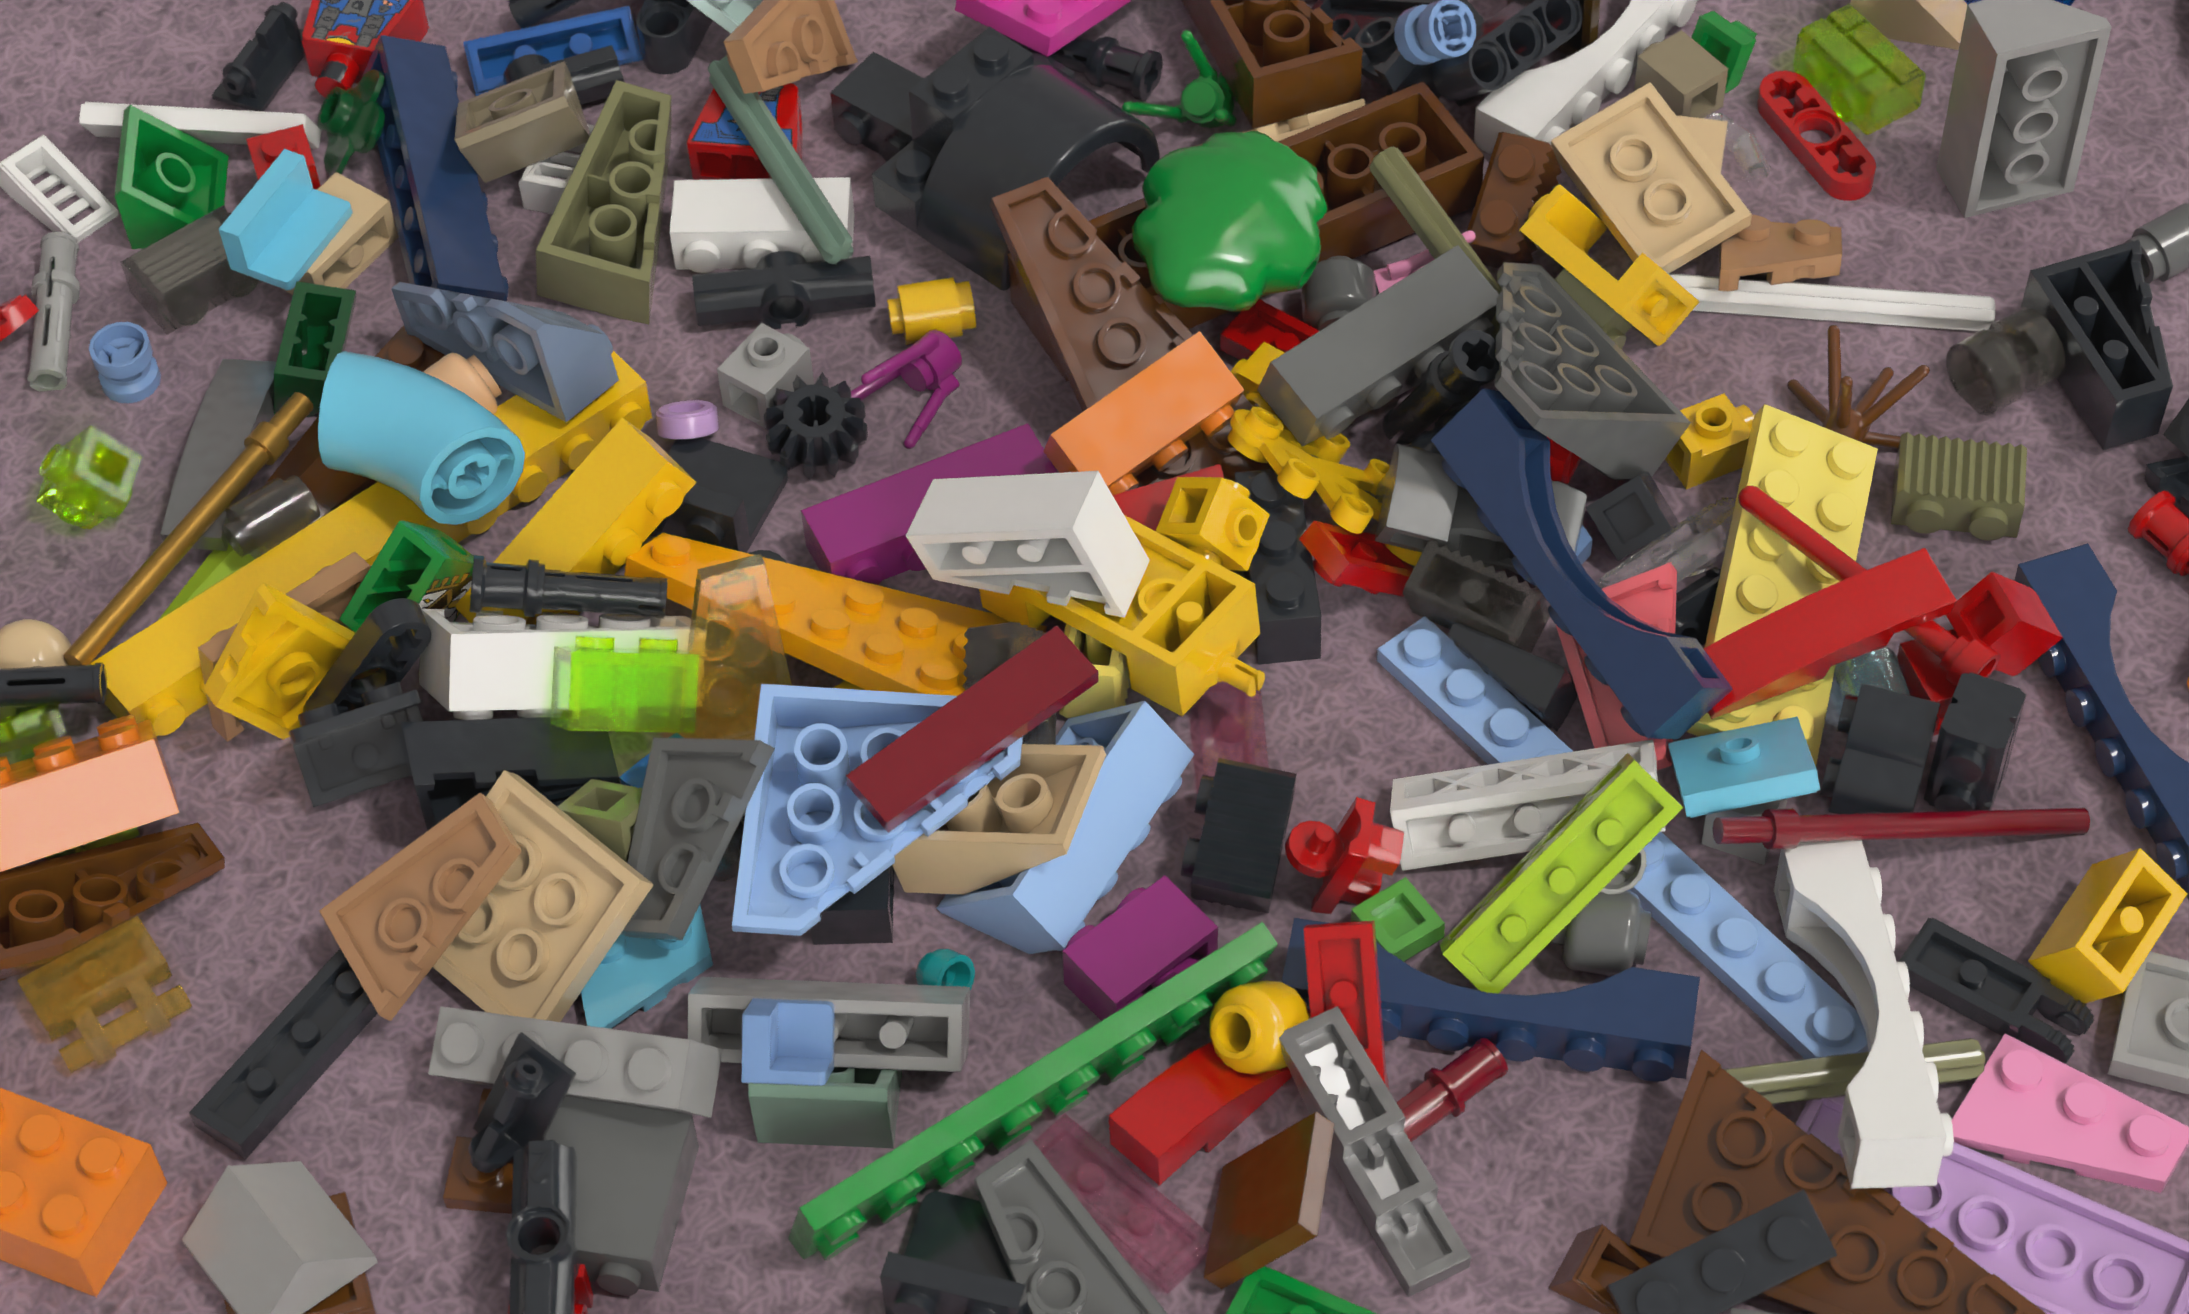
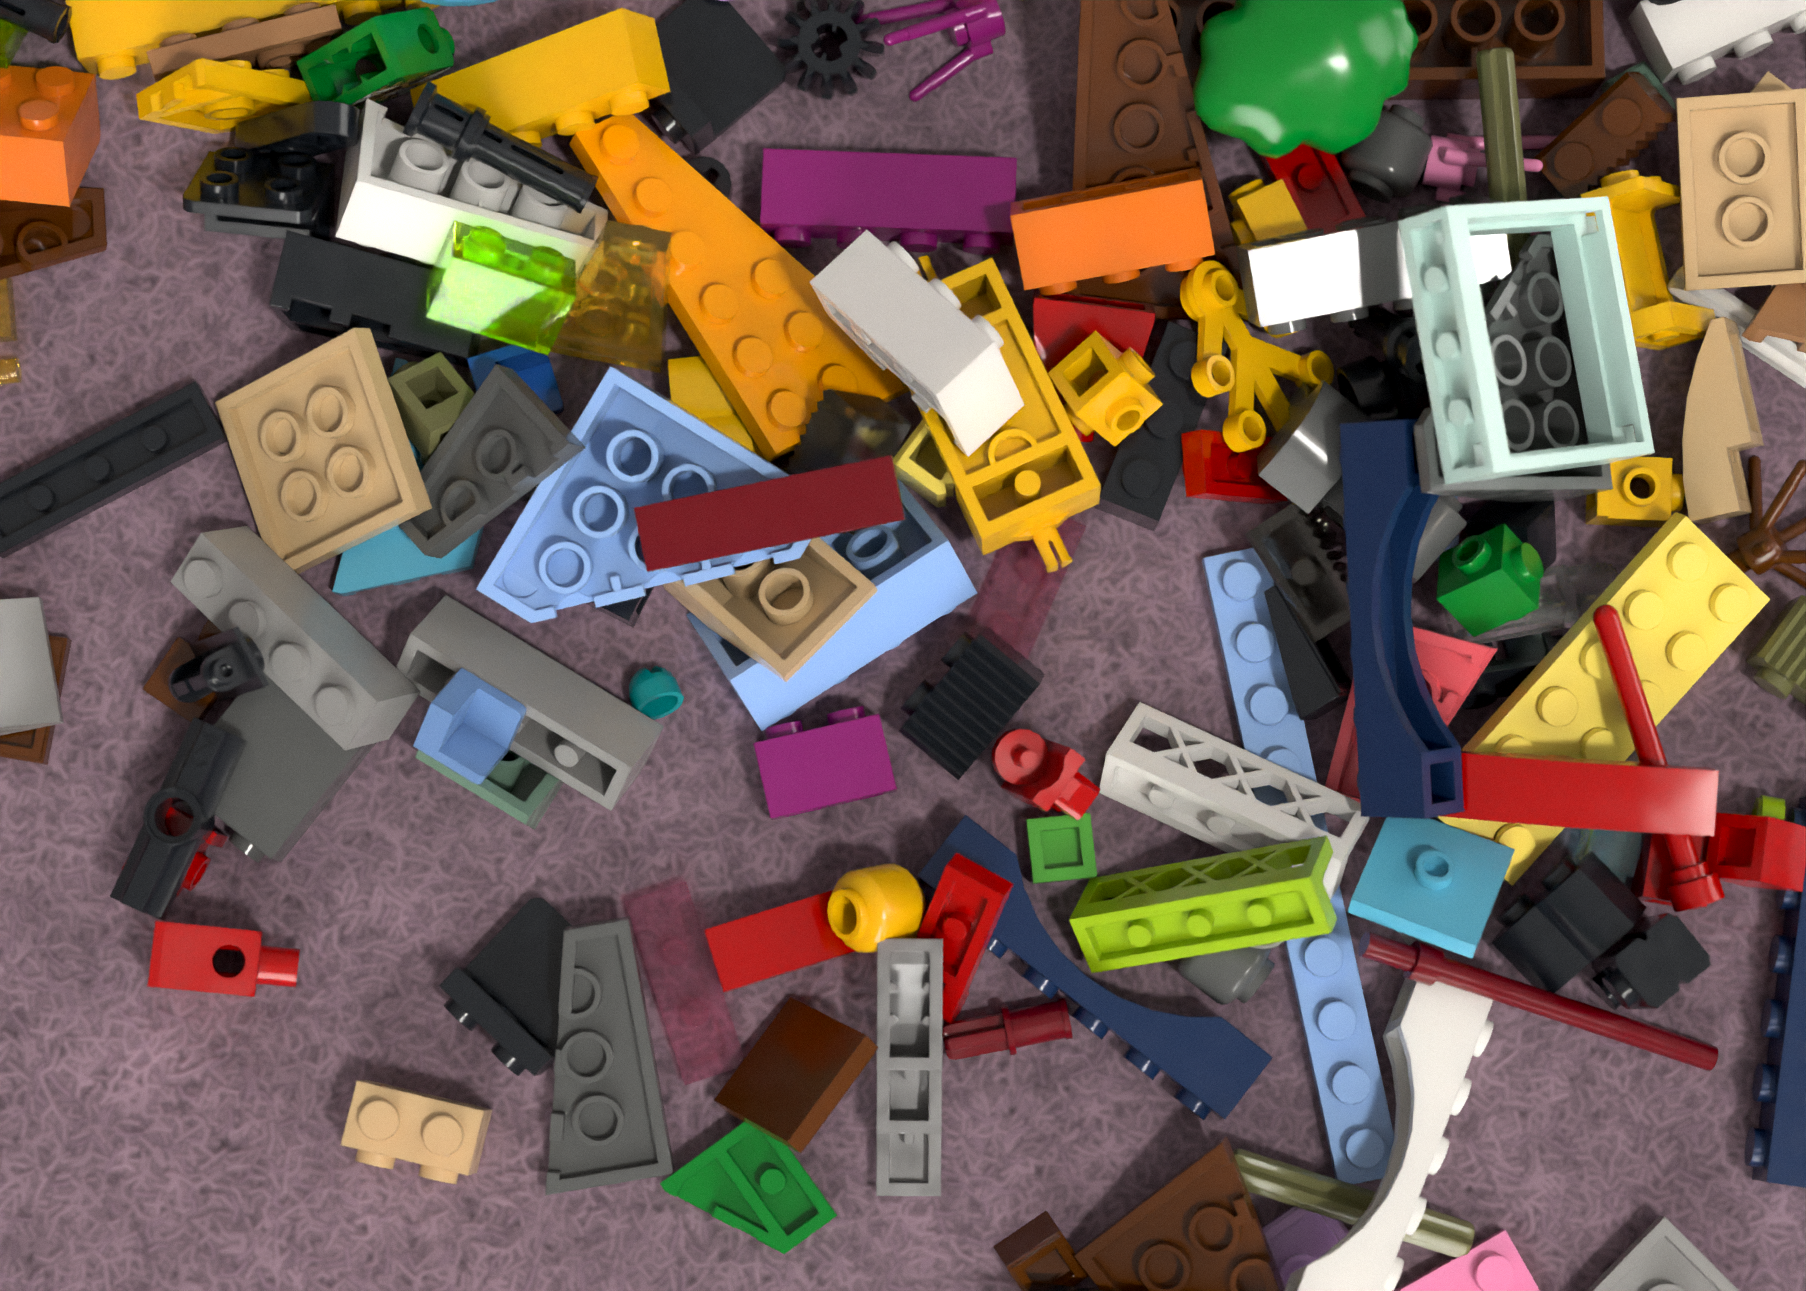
camera: 25 degrees right, 30 degrees up
(419, 900) = (233, 409): medium nougat wing -> none
(1007, 1110) = (645, 866): green plate -> none
(1452, 256) = (1458, 344): none -> light aqua window
(1635, 521) = (1489, 580): none -> green brick
(1746, 350) = (1717, 426): none -> tan slope
(1993, 989) = (1519, 1178): black hinge -> none
(2108, 927) = (1651, 1191): yellow brick -> none

